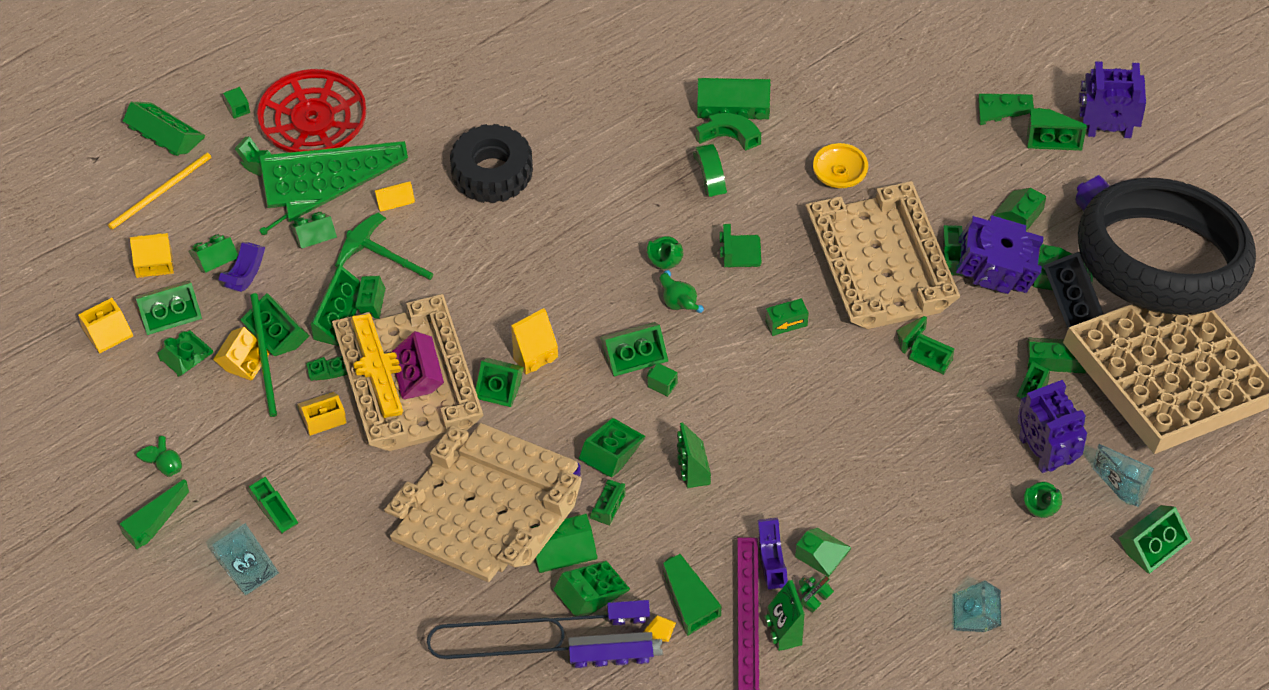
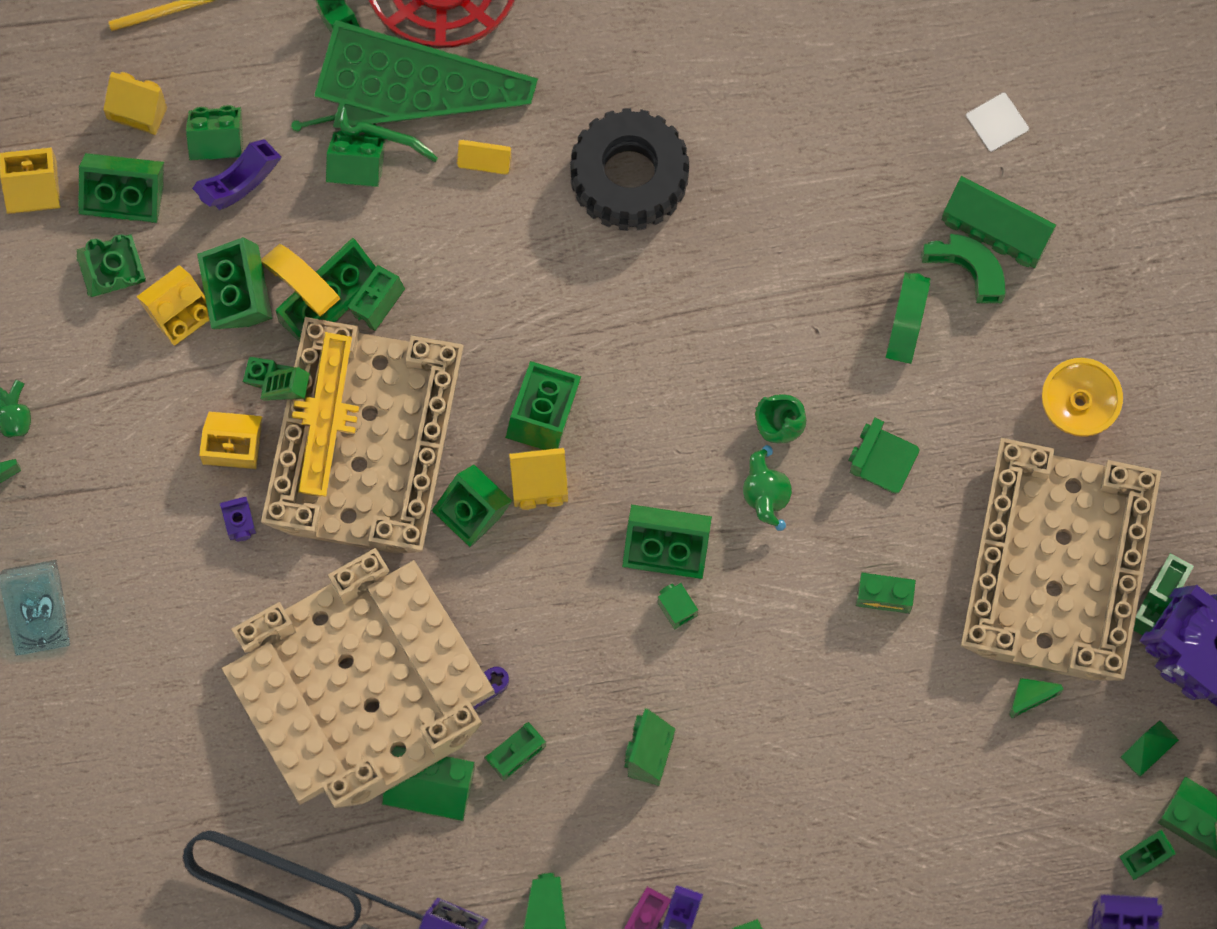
camera: 25 degrees right, 20 degrees up
(263, 355) = (199, 321): green piece -> none
(272, 505) = (107, 547): green slope -> none
(317, 298) = (300, 278): none -> yellow slope
(325, 208) = (386, 134): none -> green piece
(348, 355) = (291, 384): none -> green slope
(351, 453) = (235, 508): none -> dark purple brick
(360, 238) = (407, 200): green piece -> none
(419, 366) = (379, 438): magenta slope -> none
(509, 308) = (542, 407): none -> green slope
(590, 588) = (430, 863): green slope -> none
(611, 447) = (562, 672): green slope -> none
(699, 55) = (997, 121): none -> white sticker
(932, 354) = (1042, 741): green hinge -> none
(997, 332) = (1149, 748): none -> green slope

